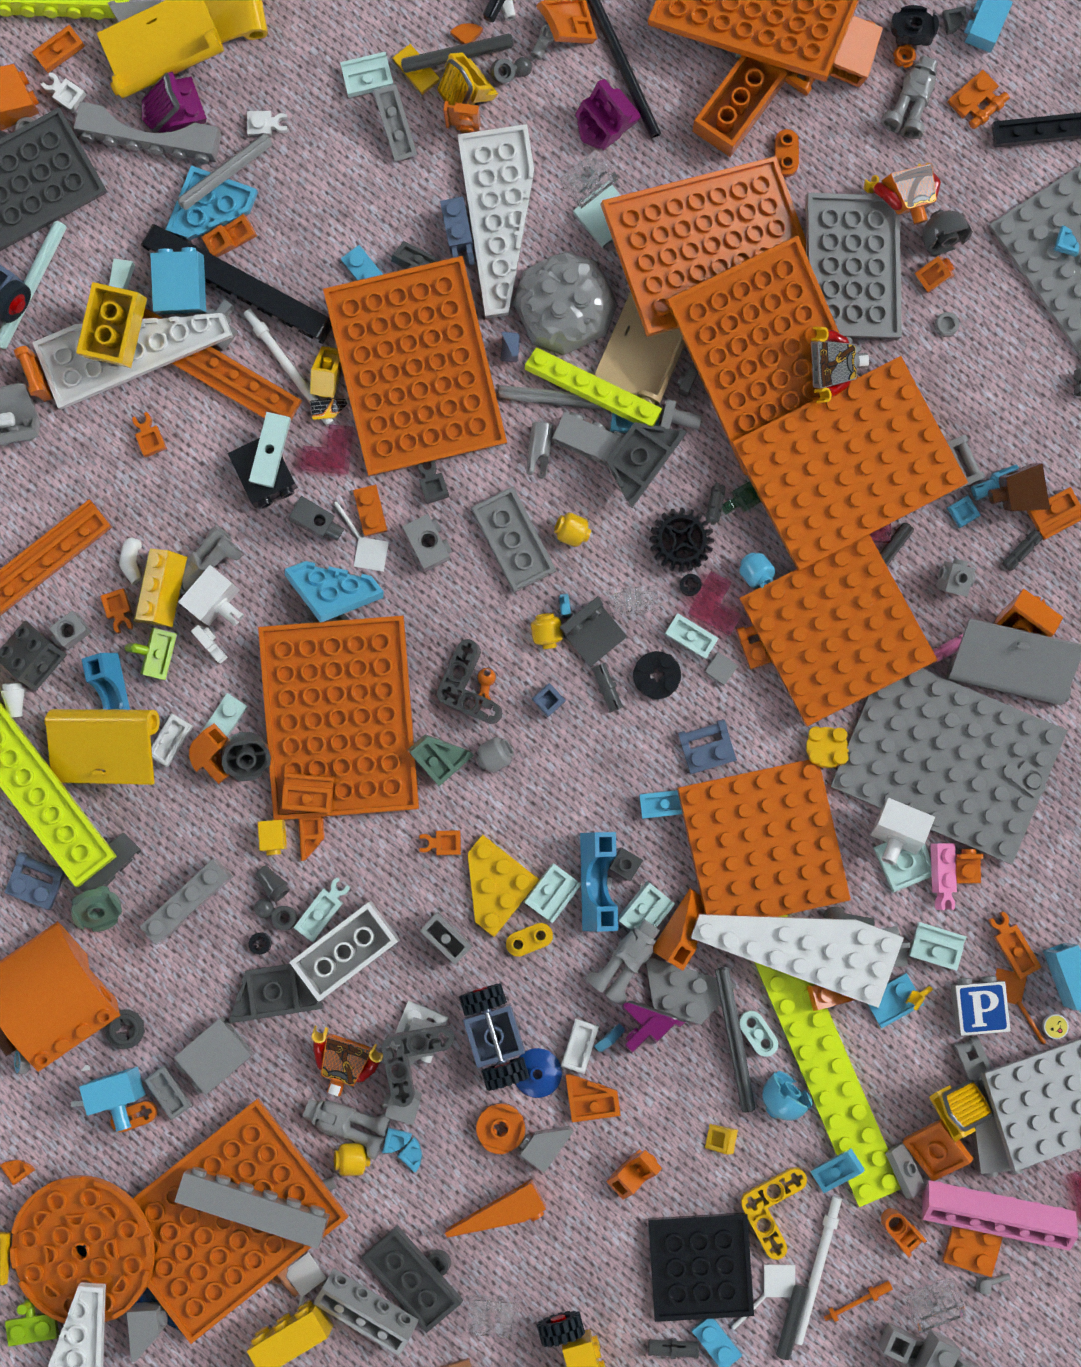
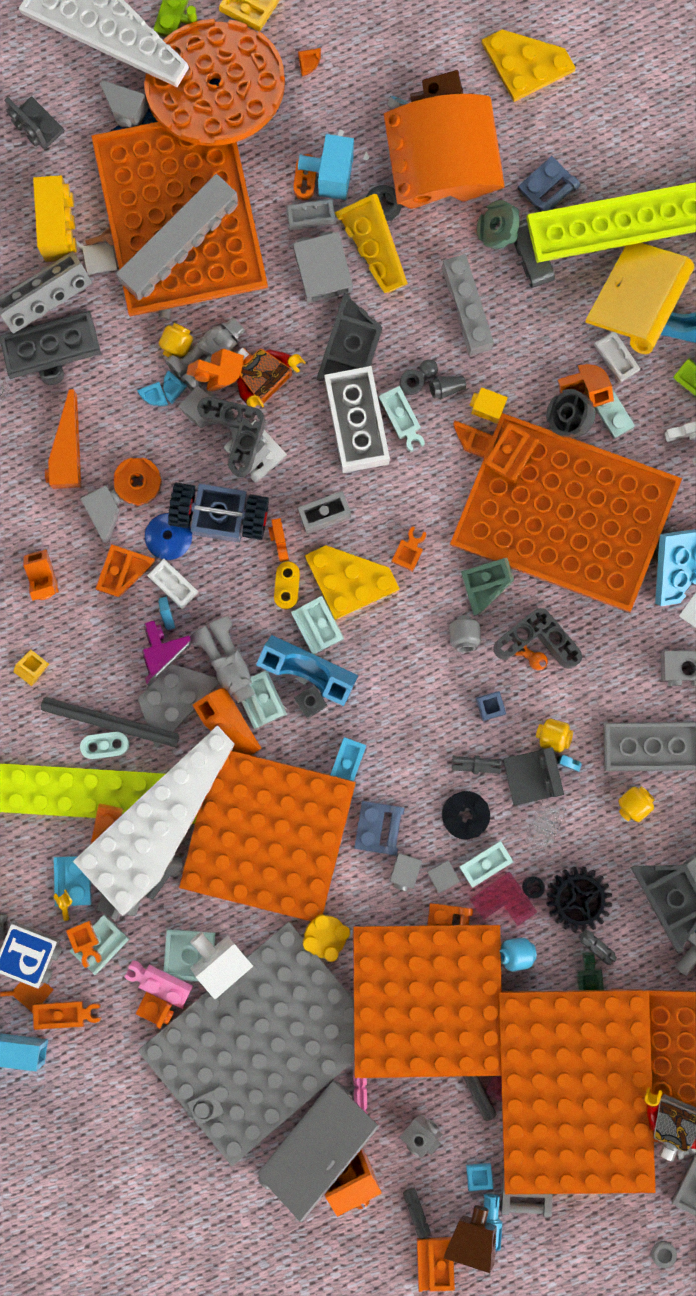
camera: 110 degrees right, 0 degrees up
(160, 1025) = (369, 230): none -> yellow wing
(256, 937) = (392, 352): black bush -> none
(361, 1100) = (221, 372): none -> orange brick
(487, 972) = (276, 534): none -> orange plate
(734, 704) = (405, 872): none -> light grey brick
(784, 1099) = (36, 739): medium azure cylinder -> none
(941, 962) = (83, 939): none -> orange plate

